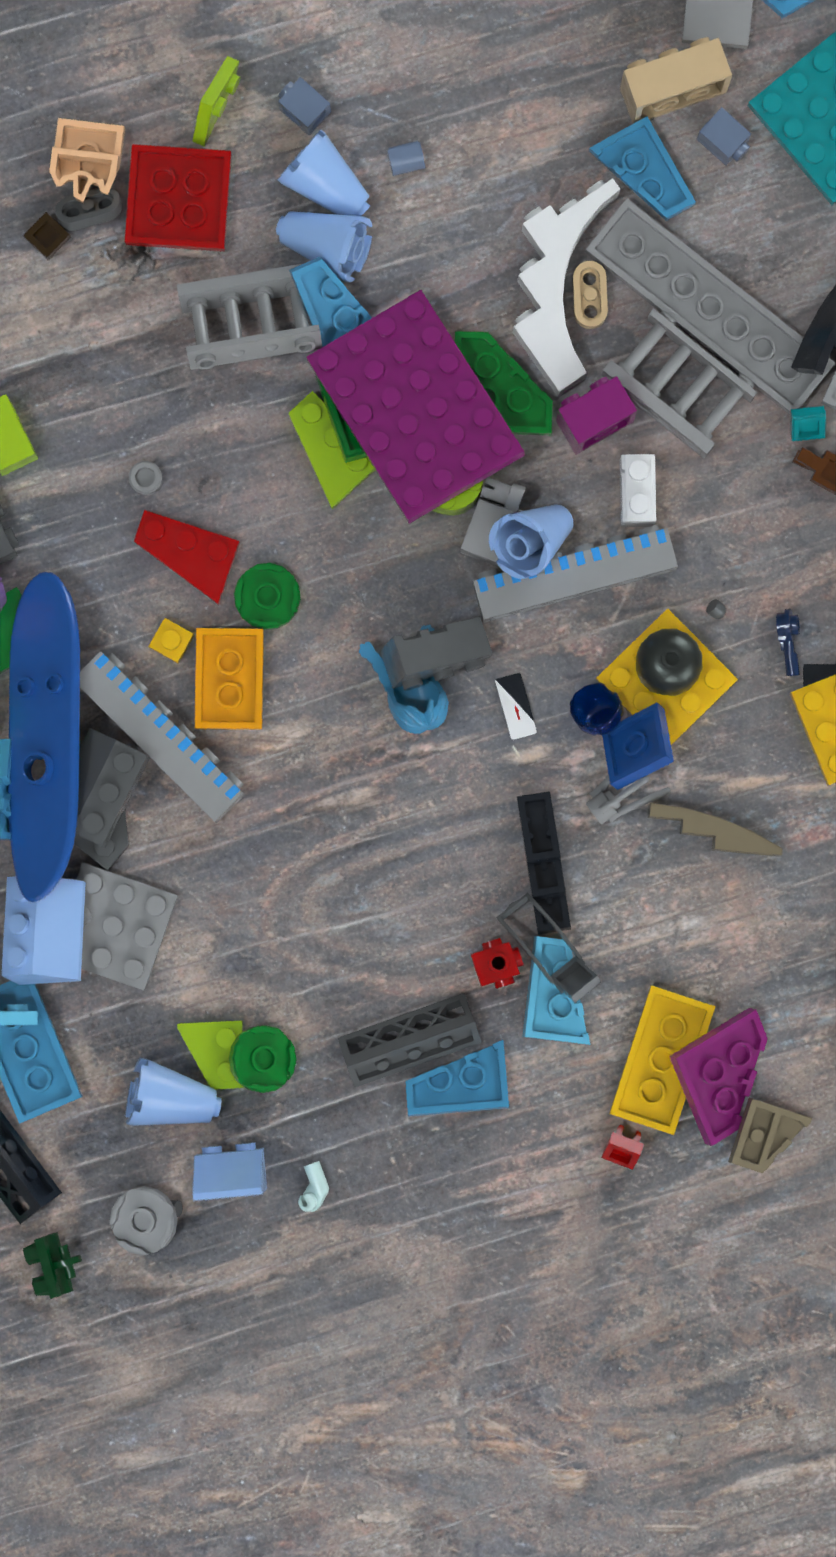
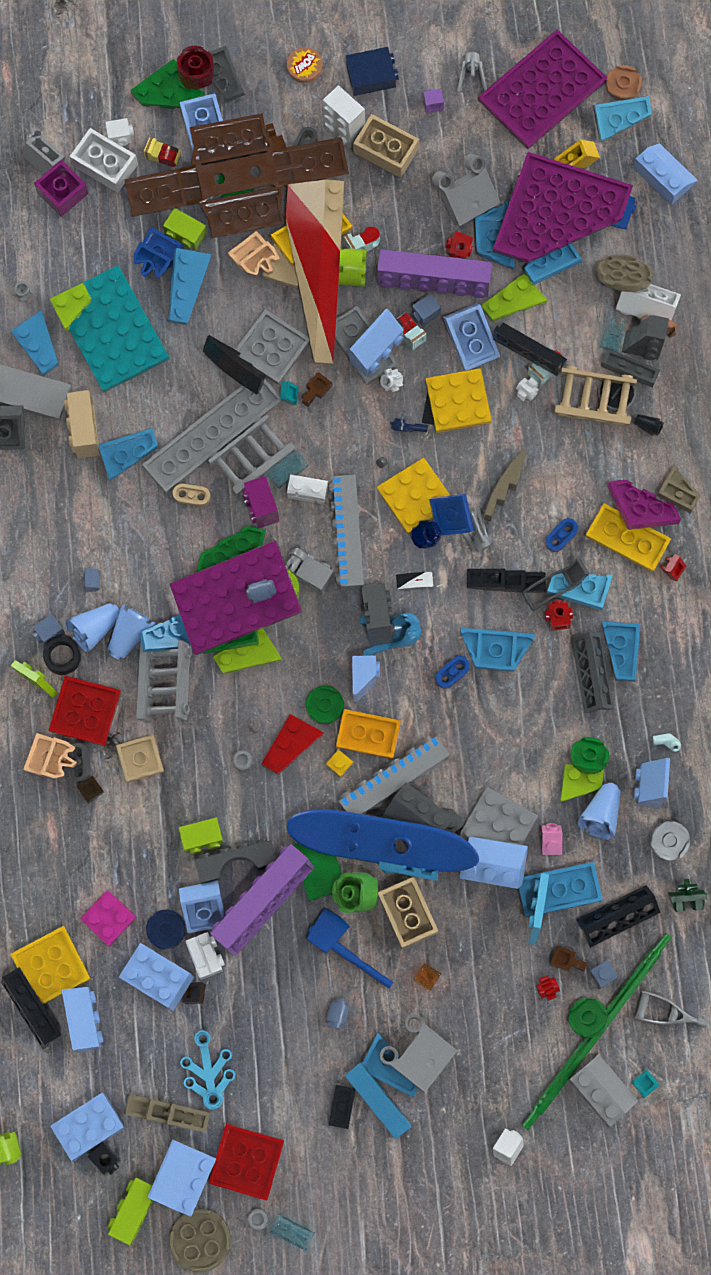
camera: 80 degrees left, 10 degrees down
(108, 1020) = (551, 839): none -> bright pink bracket
(116, 307) = (140, 758): none -> tan tile
(260, 113) = (61, 641): none -> black tyre
(323, 649) = (365, 671): none -> light blue slope
(364, 800) = (452, 672): none -> blue plate
(419, 867) = (496, 648): none -> dark azure wing
(426, 444) = (261, 590): none -> sand blue brick
(529, 539) = (325, 549): light blue cone -> none
(554, 239) = (208, 522): white arch -> none
(643, 944) = (561, 536): none -> blue plate
(668, 662) = (407, 490): pearl dark grey cylinder -> none
(669, 448) = (289, 466): none -> clear light blue plate
(725, 137) = (119, 406): sand blue brick -> none

